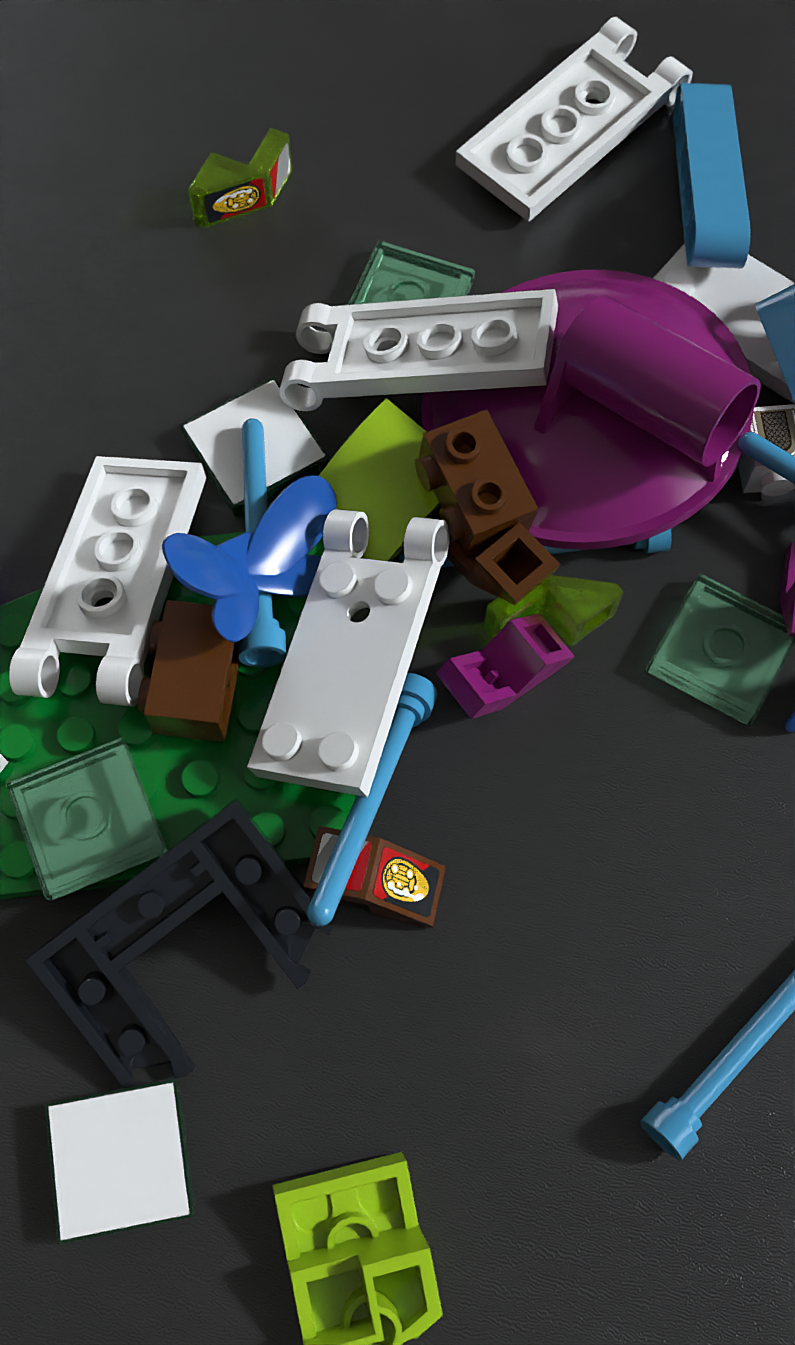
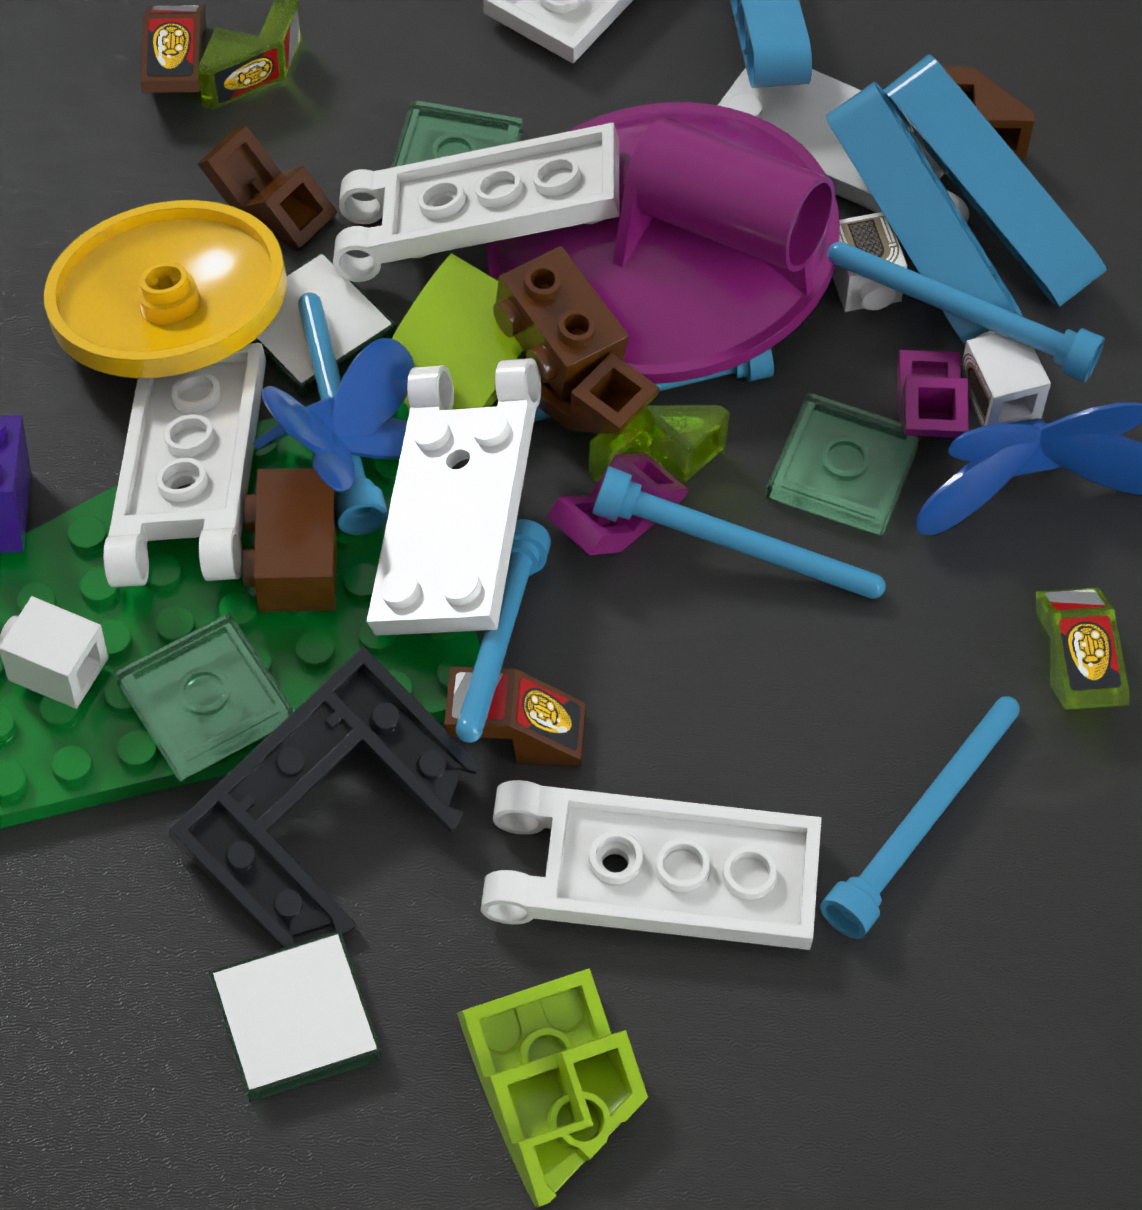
camera: 10 degrees left, 10 degrees down
(123, 400) = (165, 288): none -> yellow dish
(172, 166) = (172, 48): none -> slope
(240, 320) = (250, 180): none -> reddish brown slope
(511, 666) = (623, 498): none -> dark azure piece
(519, 1064) = (686, 872): none -> white hinge

